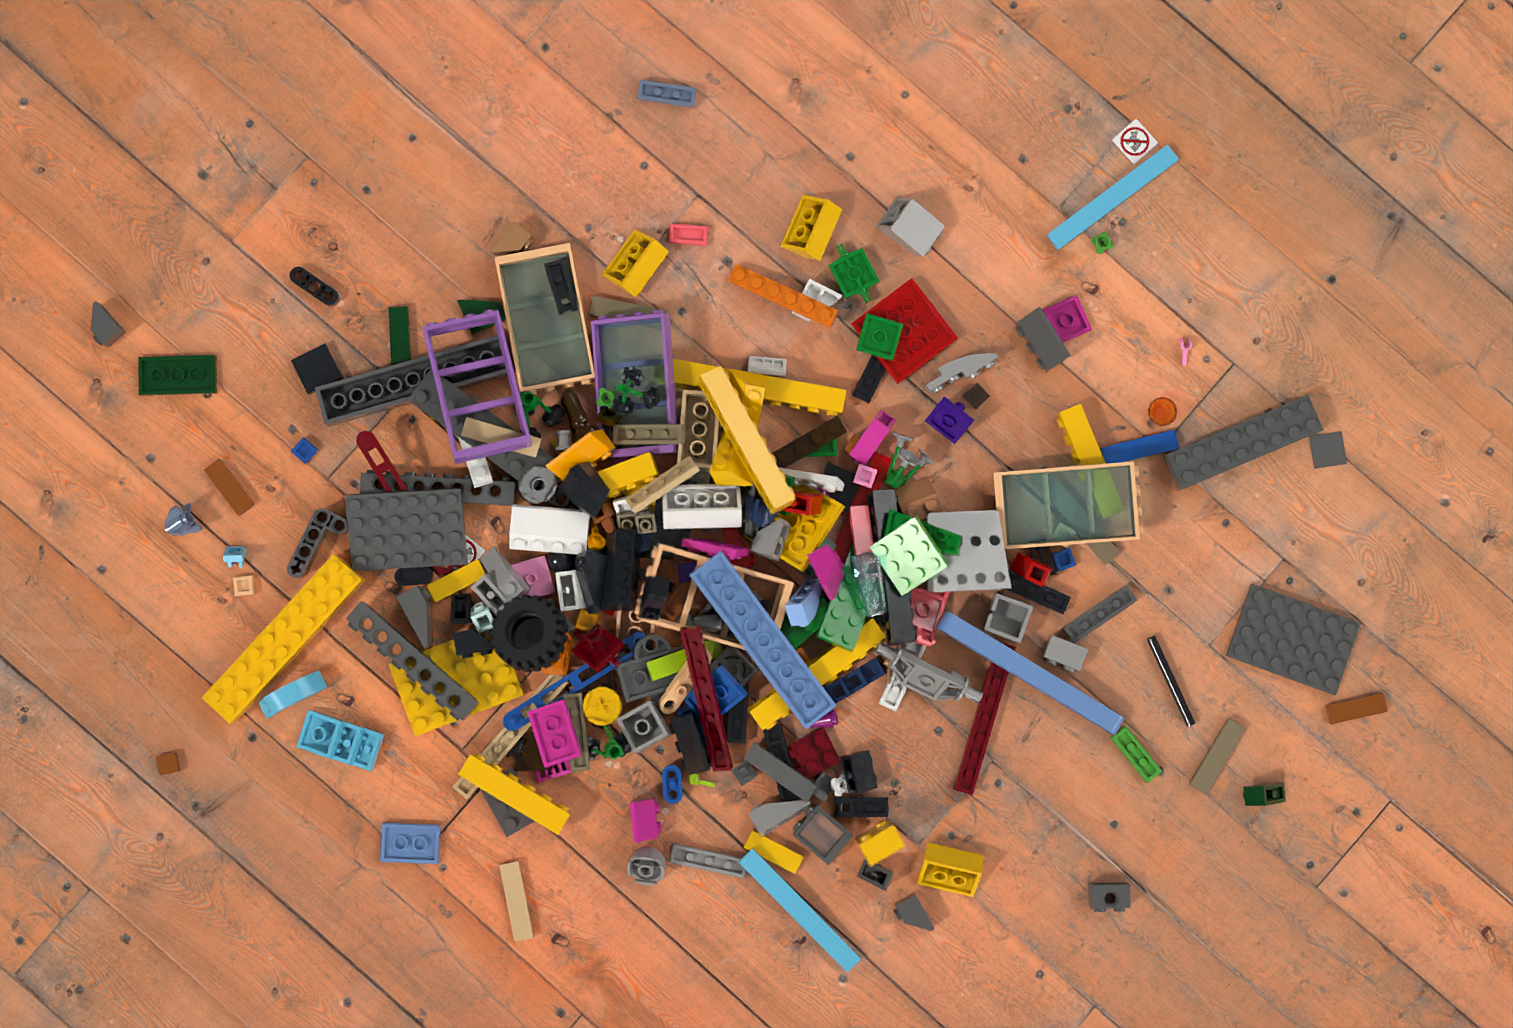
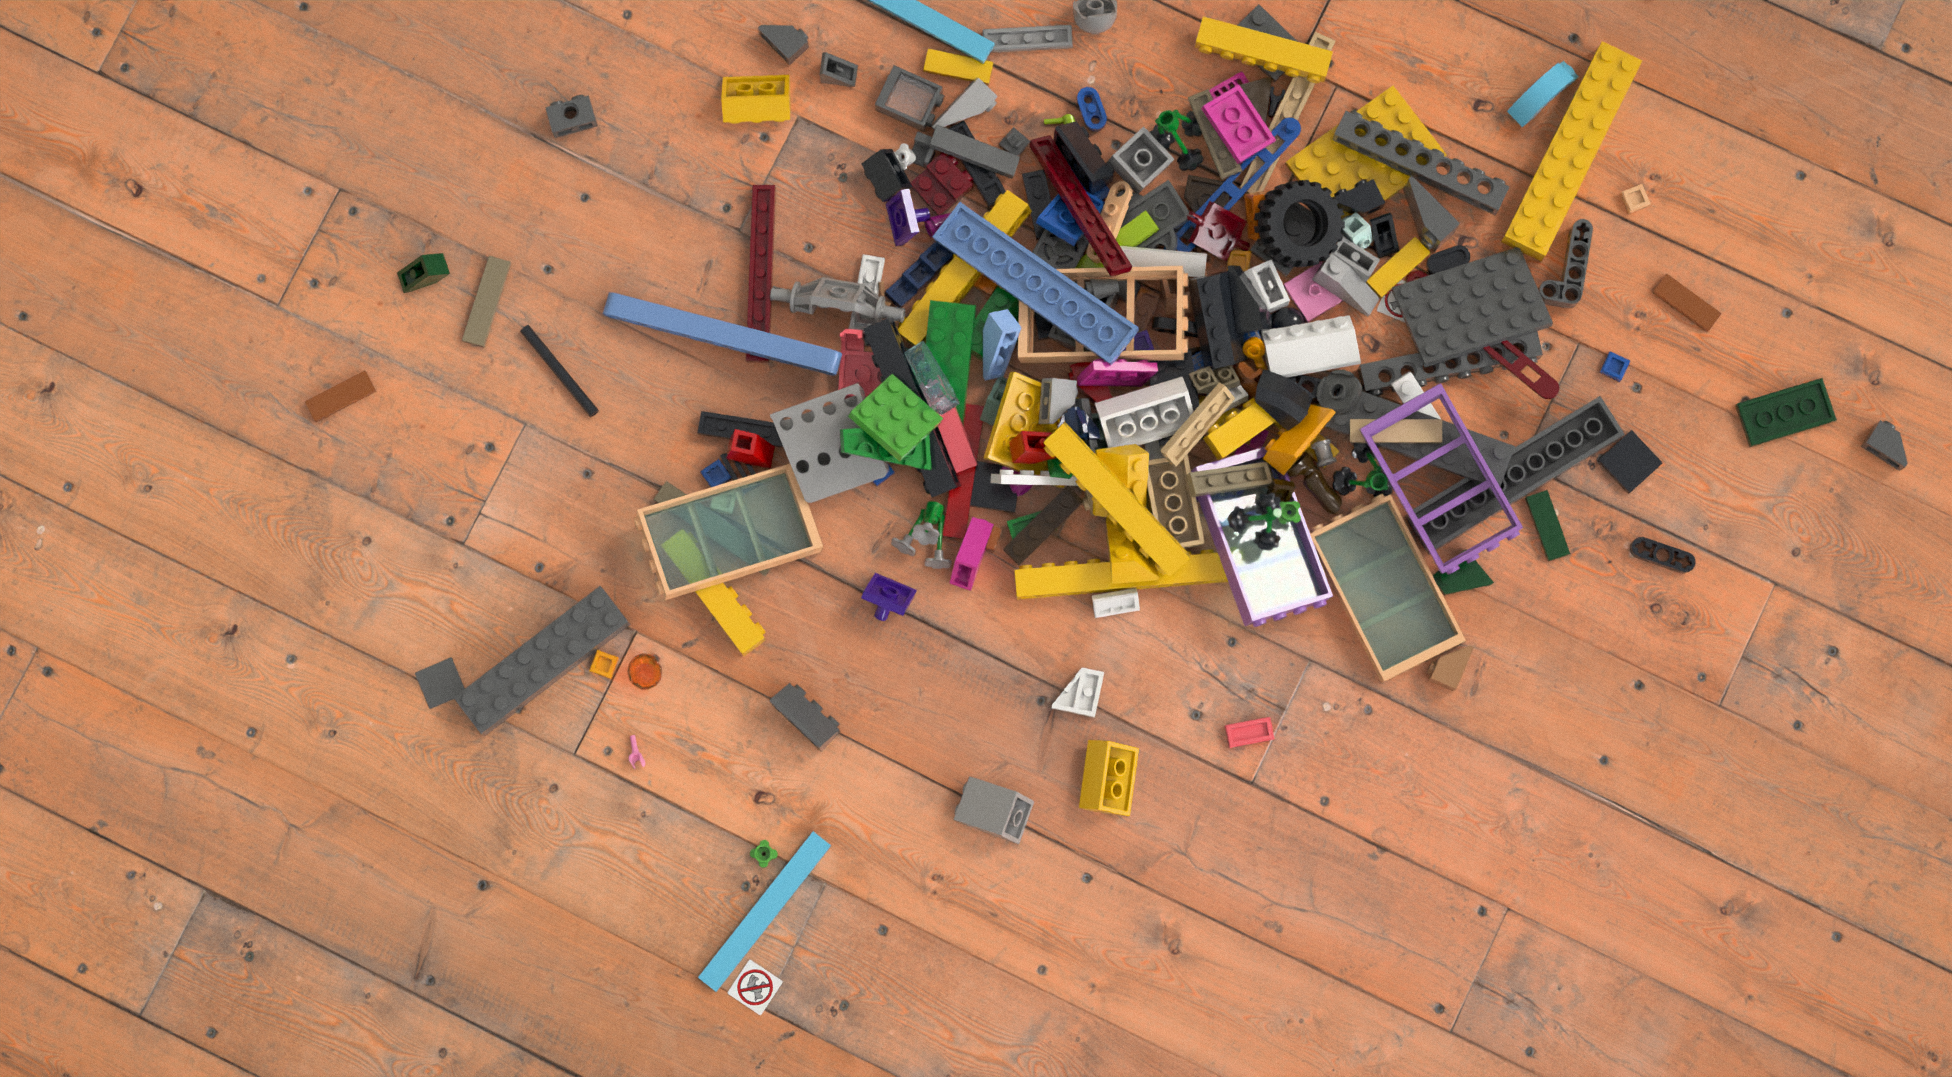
camera: 170 degrees right, 5 degrees down
(181, 521) = (1727, 248): sand blue brick -> none
(234, 554) = (1656, 228): medium azure tile -> none
(340, 740) = (1474, 59): medium azure slope -> none
(560, 286) = (1380, 627): black plate -> none
(602, 706) = (1194, 169): yellow tile -> none
(609, 307) = (1307, 622): dark tan tile -> none
(635, 263) = (1301, 680): yellow slope -> none
(645, 819) = (1111, 60): dark pink slope -> none
(649, 633) = (1192, 262): none -> white tile
(653, 598) = (1171, 291): black slope -> none
(666, 94) = (1322, 891): sand blue plate -> none
(783, 296) = (1119, 687): orange plate -> none
(828, 569) = (983, 379): dark pink slope -> none
(853, 273) = (1044, 737): green plate -> none
(853, 731) = (904, 217): none -> dark purple tile
(861, 806) = (873, 140): black plate -> none
(865, 476) = (968, 505): bright pink plate -> none
(869, 380) = (990, 628): black tile -> none
(879, 337) = (995, 669): green tile -> none
(880, 841) = (844, 100): yellow brick -> none
(918, 499) = (900, 494): nougat slope -> none
(922, 333) = (967, 686): red plate -> none
(966, 366) = (883, 665): light grey slope -> none
(976, 396) = (864, 635): clear smoke tile -> none
(1007, 618) = (763, 387): light grey piece -> none
(1064, 653) = (688, 368): light grey brick -> none
(1068, 318) = (782, 751): dark pink tile -> none
(1099, 614) = (659, 423): dark grey plate -> none
(1136, 754) = (578, 279): bright green tile -> none
(1140, 447) = (660, 625): blue tile -> none
(1192, 428) = (604, 664): none -> light orange tile
(1293, 639) = (430, 454): dark grey plate -> none

